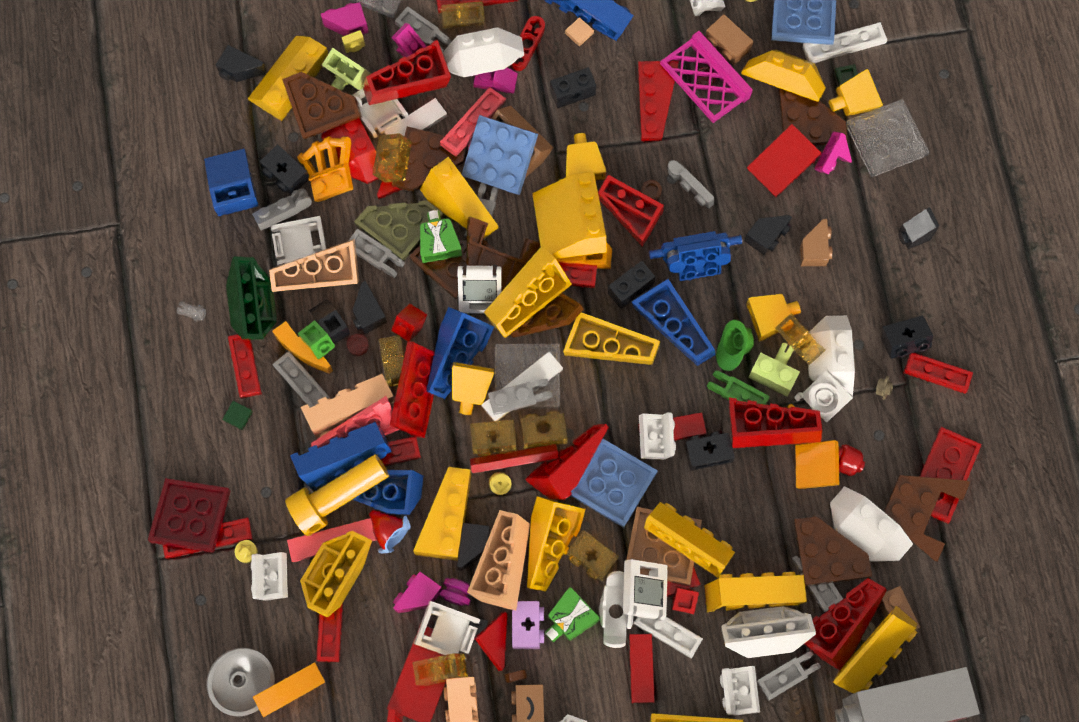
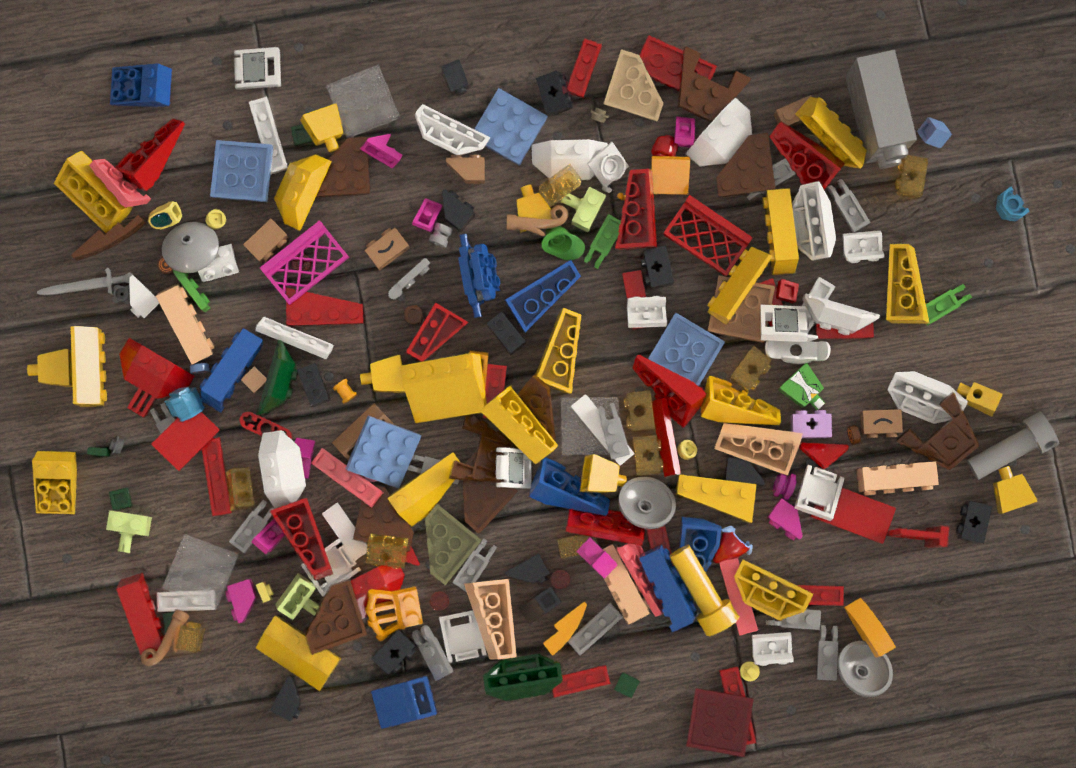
camera: 95 degrees left, 10 degrees up
(192, 311) = (530, 731): clear pin -> none
(261, 641) = (827, 655): none -> light grey hinge
(301, 617) = (807, 620): none -> light grey hinge
(316, 339) = (562, 614): bright green bracket -> none
(338, 218) = (439, 601): none -> clear red tile
(376, 375) = (597, 558): none -> dark pink slope
(409, 322) = (542, 532): red brick -> none
(438, 239) = (465, 506): bright green torso -> none
(439, 669) = (854, 497): clear yellow brick -> none
(450, 430) = (647, 494): none -> light grey dish
(567, 120) = (344, 391): none -> light orange bush
(579, 53) = (279, 380): none -> dark green wedge
(624, 69) = (294, 337): none -> white tile
(655, 657) = (837, 315): none -> white wedge
(723, 161) = (387, 248): none -> medium nougat brick
(735, 216) = (440, 235): none -> light grey wheel
(753, 309) = (534, 224): none -> medium nougat plant
(760, 200) = (427, 215): none -> dark pink slope
(763, 518) = (712, 220): none -> red fence
(784, 160) = (387, 194): red tile -> none
(855, 219) = (448, 132): none -> white wedge
(866, 291) = (510, 126): none -> medium blue plate
(869, 482) = (684, 132): none -> dark pink slope
(917, 25) = (252, 68): none -> white container
(917, 425) = (633, 88): none -> tan plate

